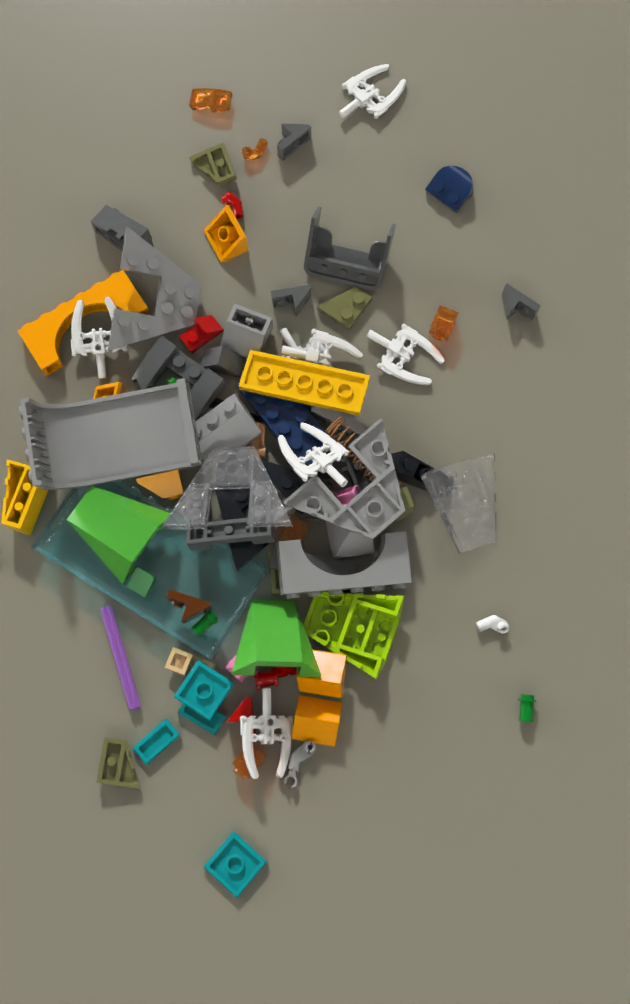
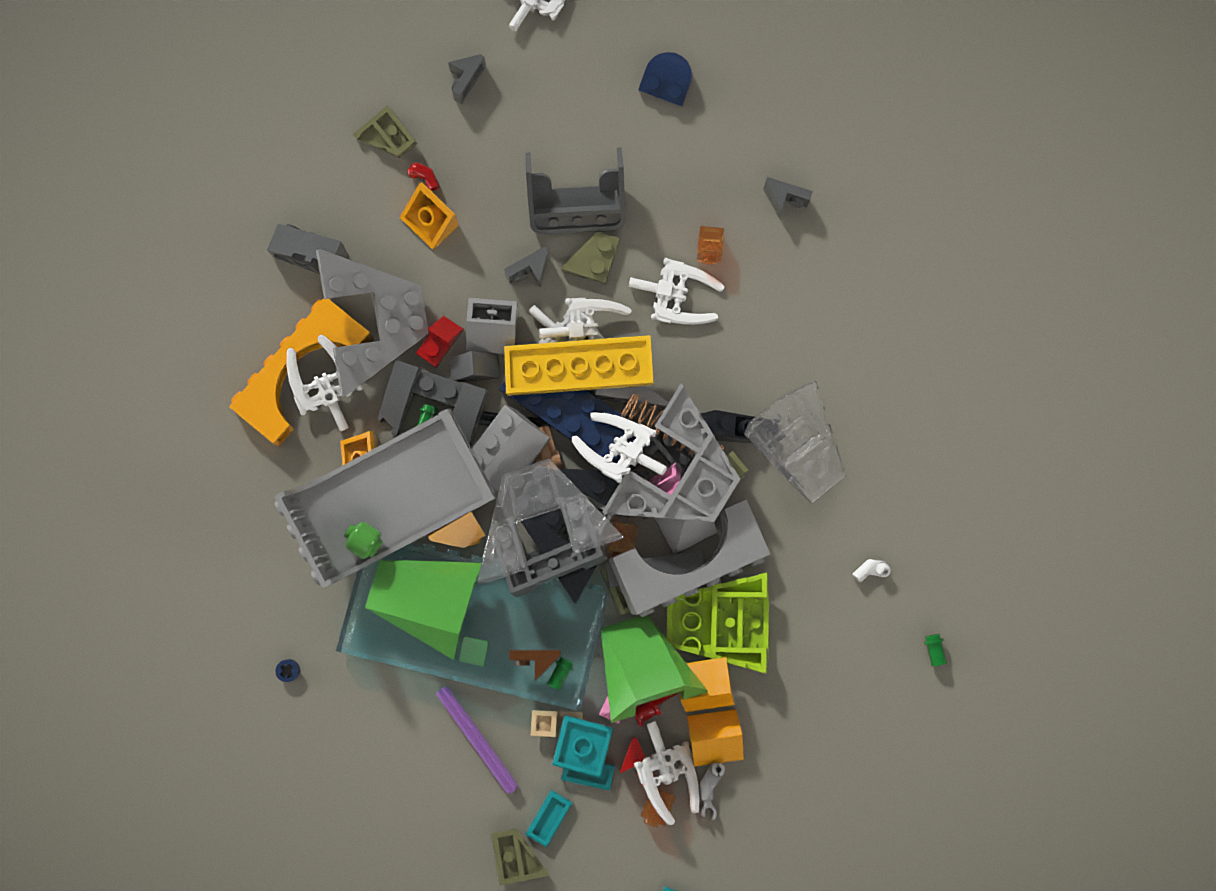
camera: 20 degrees left, 5 degrees up
(22, 499) = (305, 600): yellow wedge -> none
(82, 463) = (363, 540): none -> bright green head
(215, 99) = (352, 54): clear orange slope -> none
(255, 153) = (429, 104): clear orange arm -> none

